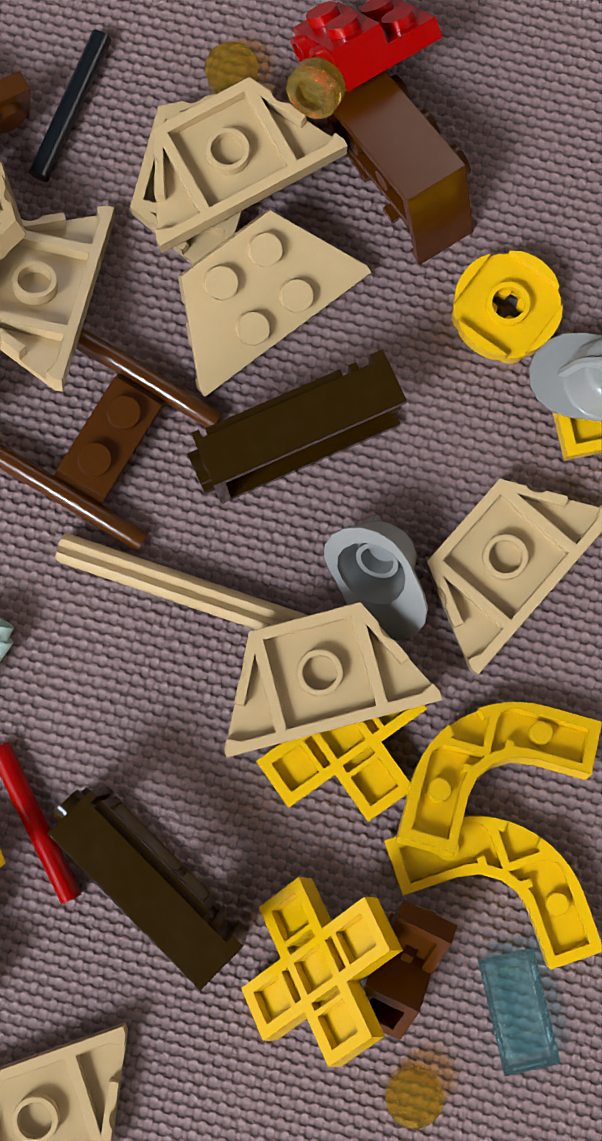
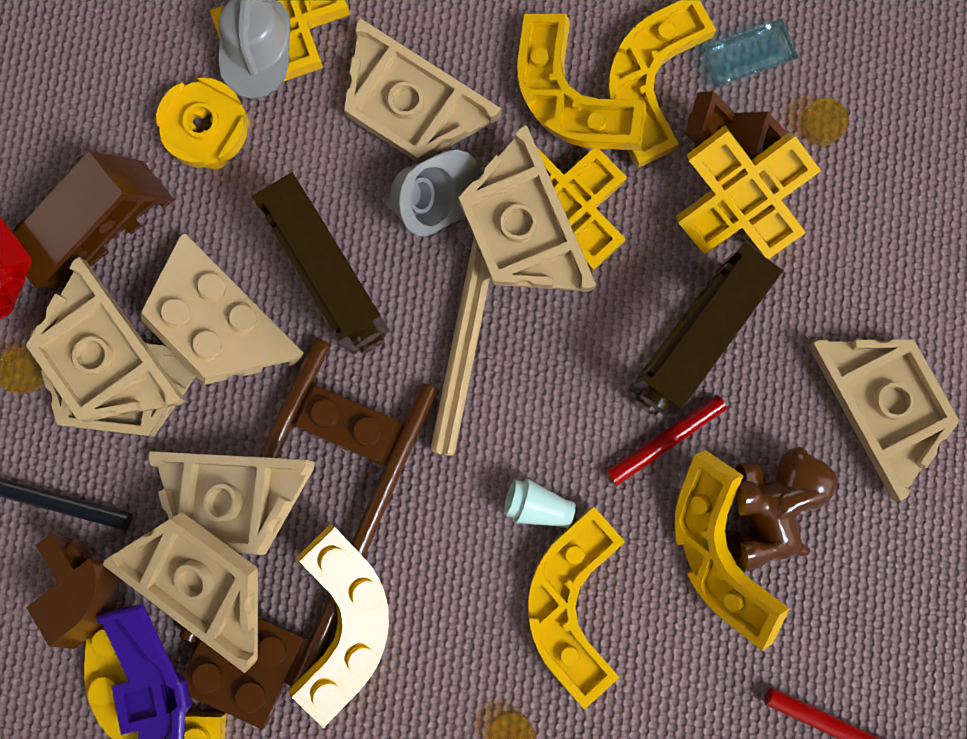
camera: 100 degrees left, 0 degrees up
(316, 88) = (31, 285): clear yellow tile -> none

